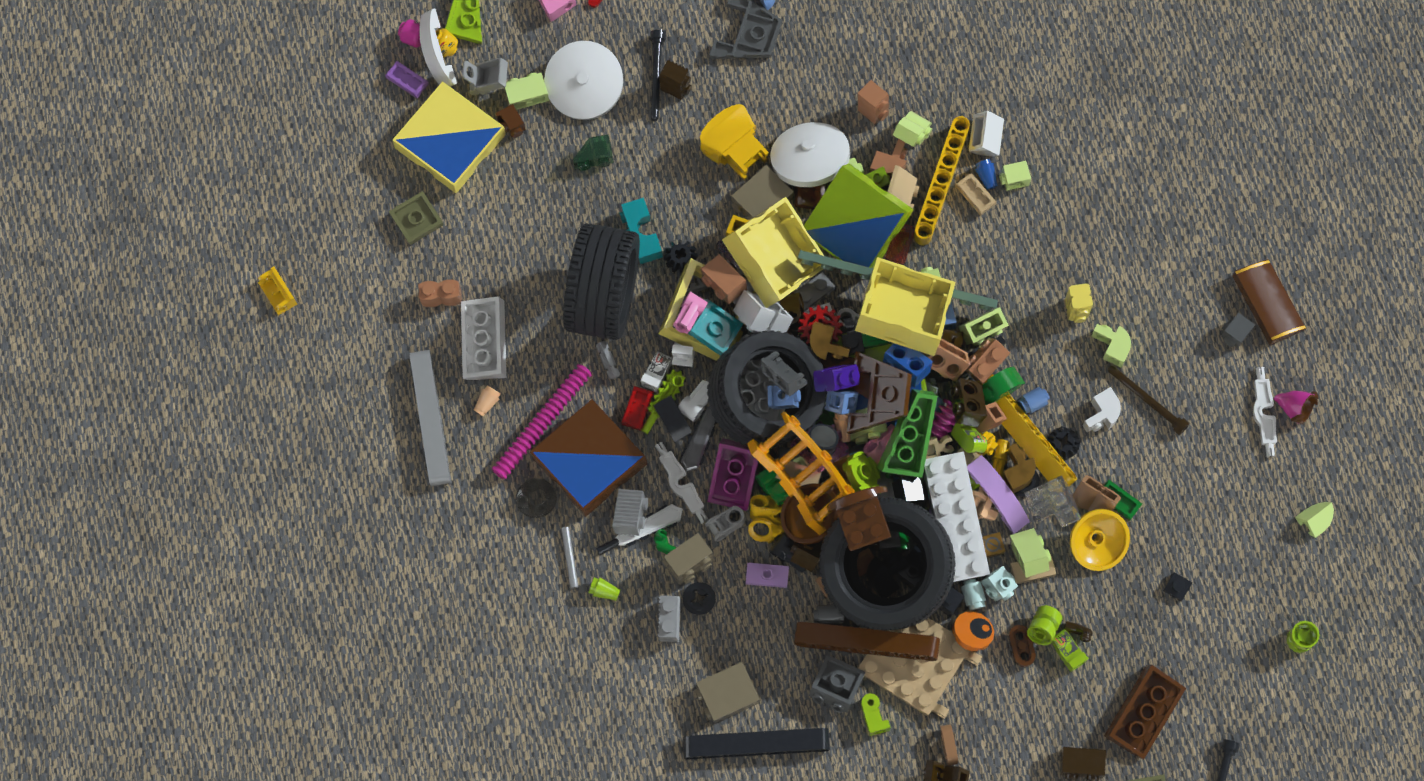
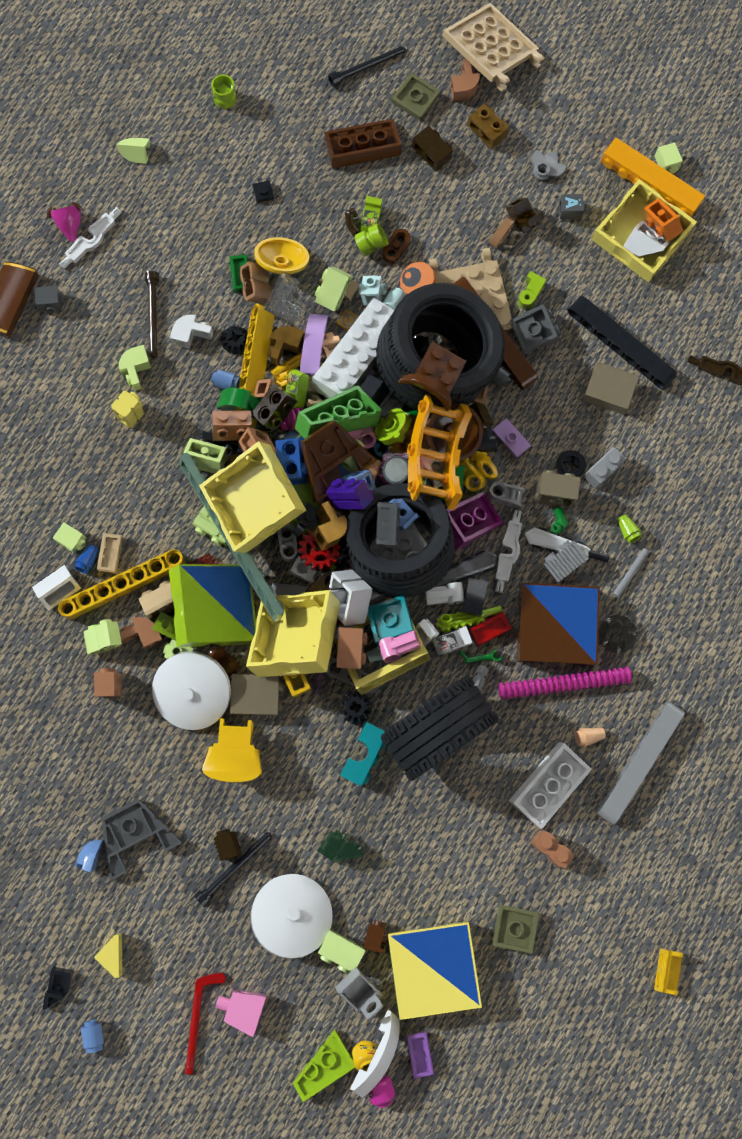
camera: 145 degrees left, 5 degrees up
(623, 383) = (480, 657): none -> green piece

